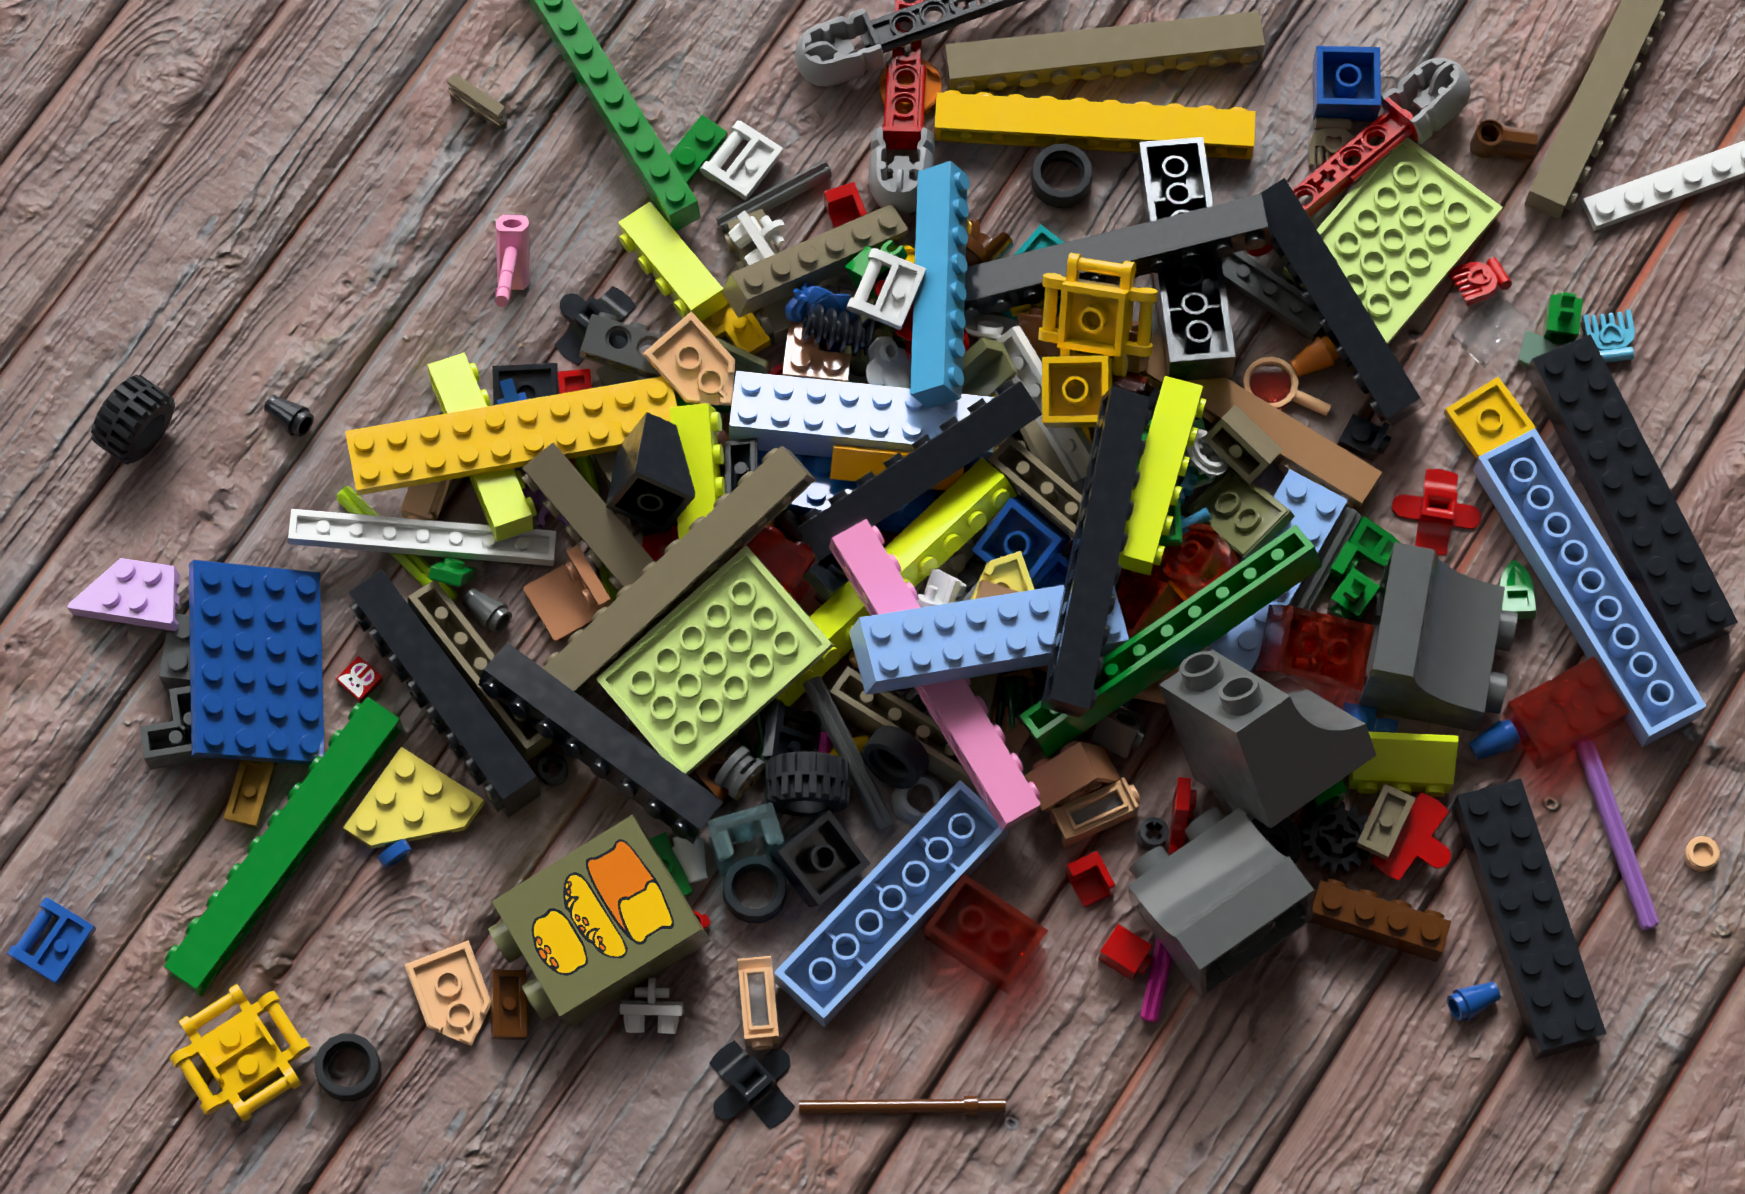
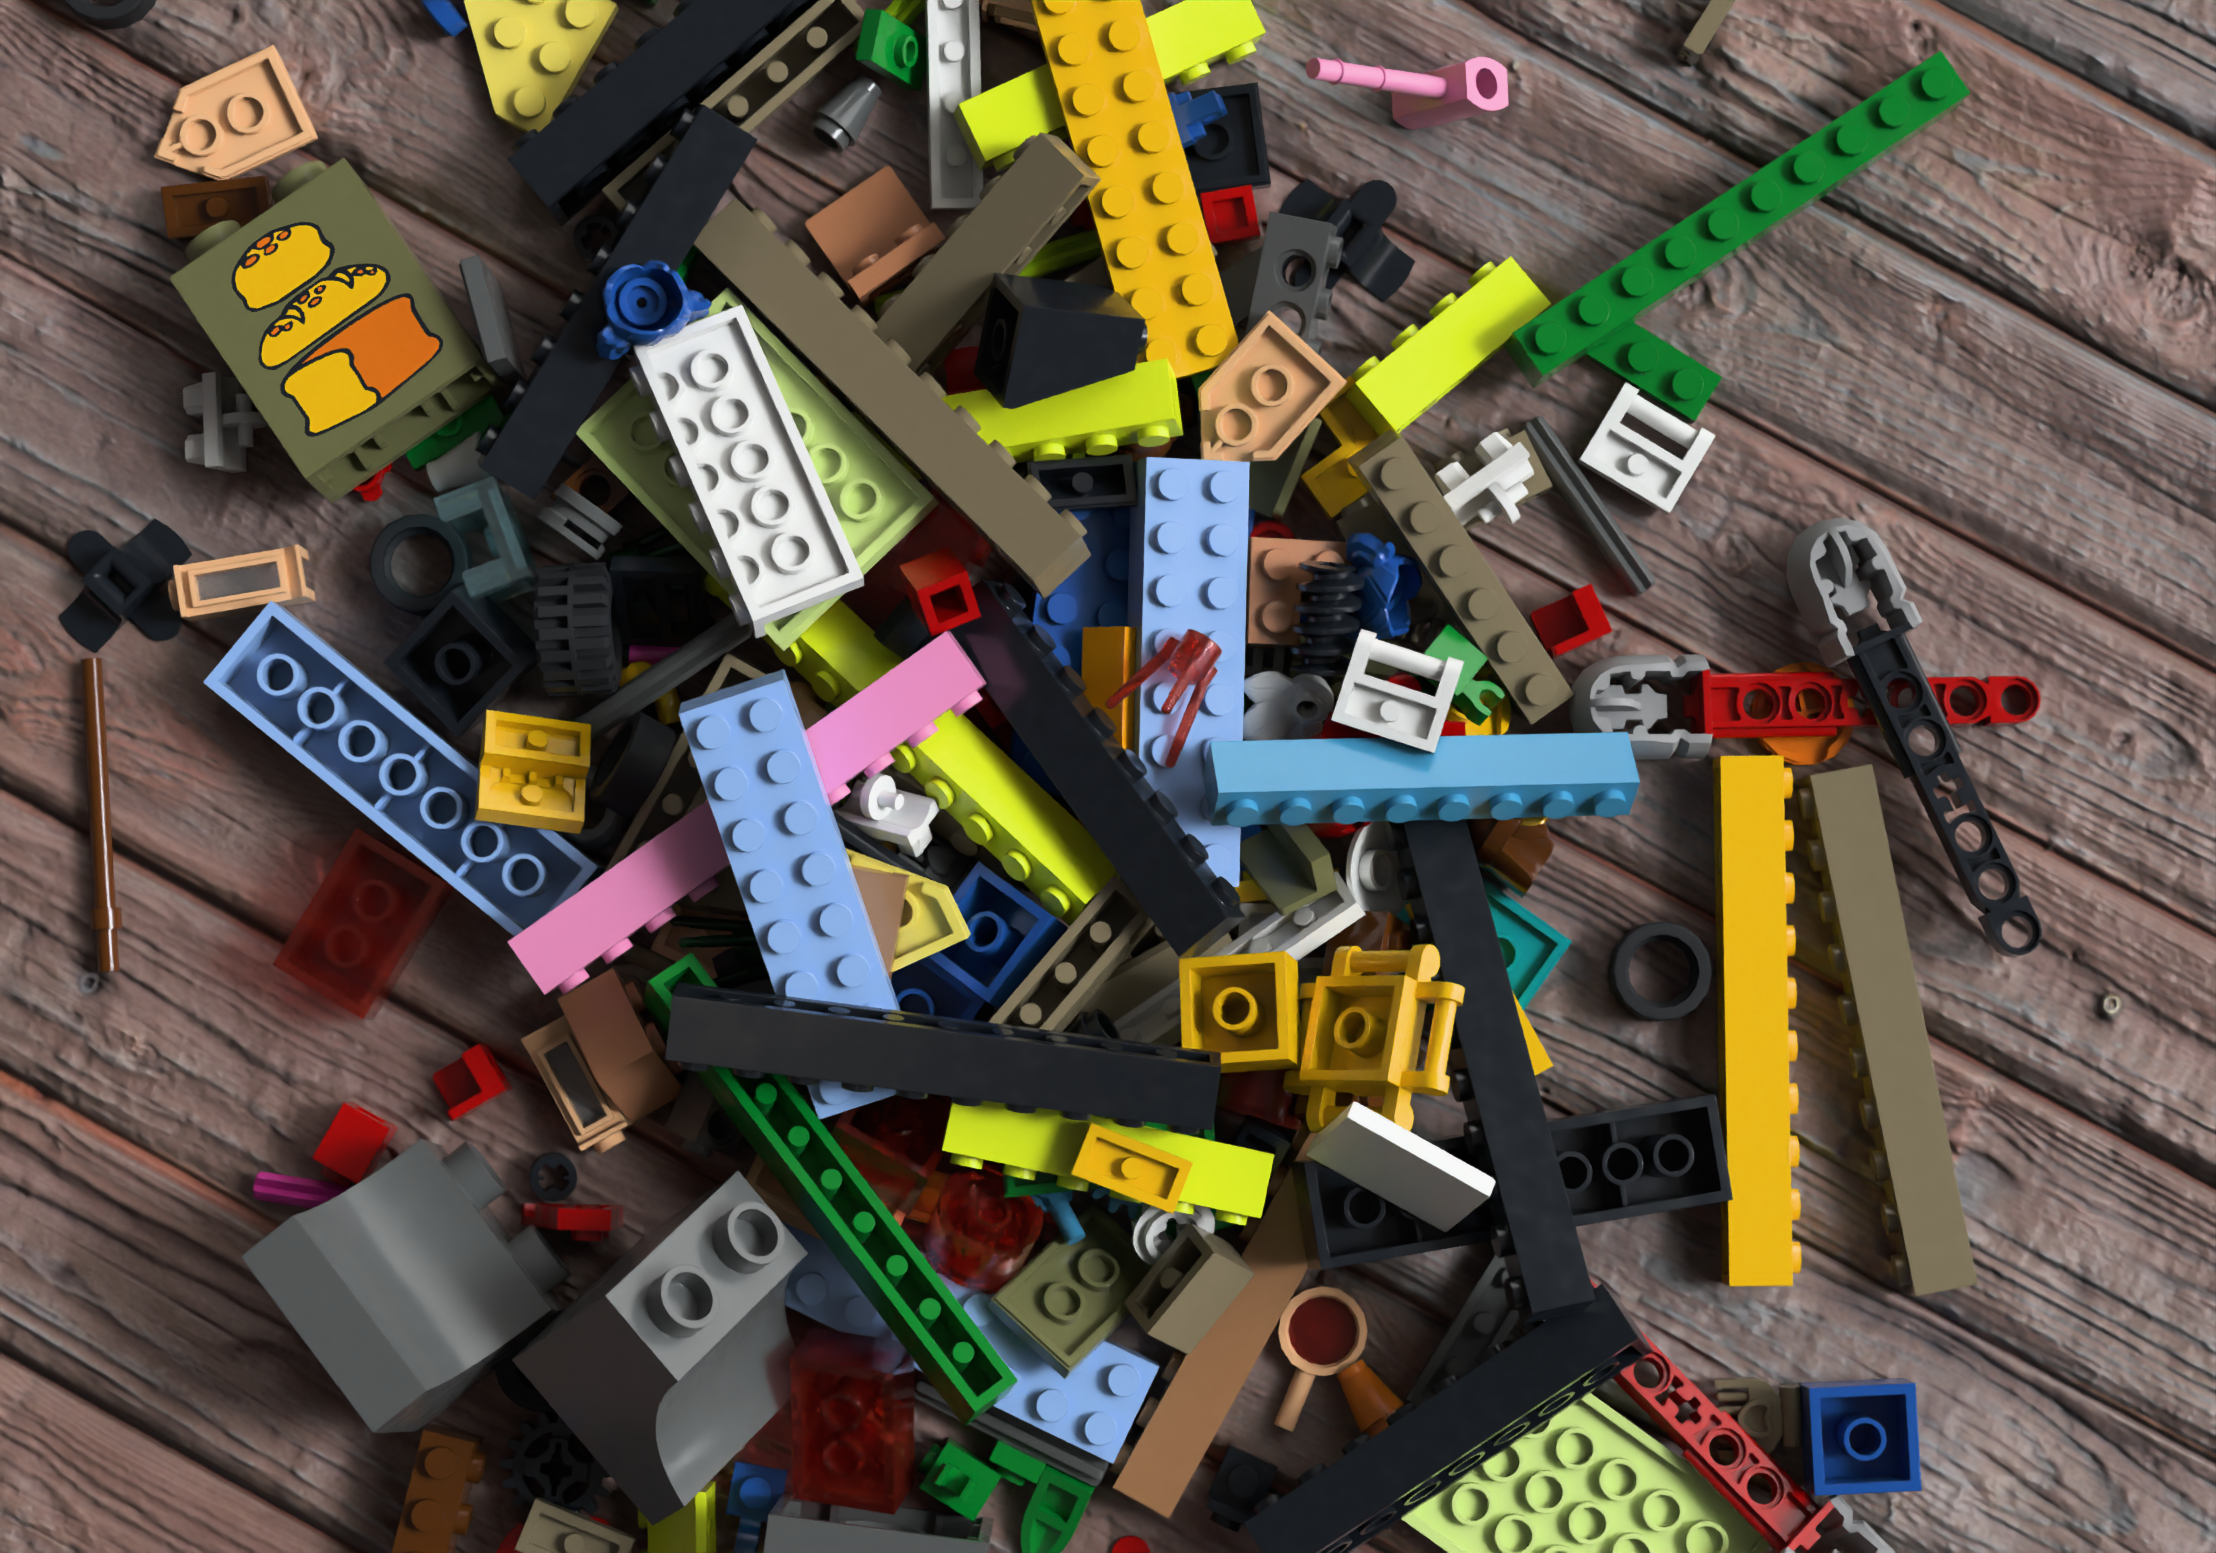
camera: 85 degrees right, 15 degrees up
(597, 817) = (492, 320): none -> dark grey tile
(611, 703) = (666, 309): none -> blue hair
(717, 660) = (745, 469): none -> white bracket
(805, 545) = (940, 591): none -> red brick
(860, 404) = (1192, 664): none -> clear red plant
(896, 815) = (533, 772): none -> yellow slope
(1169, 451) = (1131, 1167): none -> yellow plate
(1176, 299) = (1401, 1167): none -> white tile

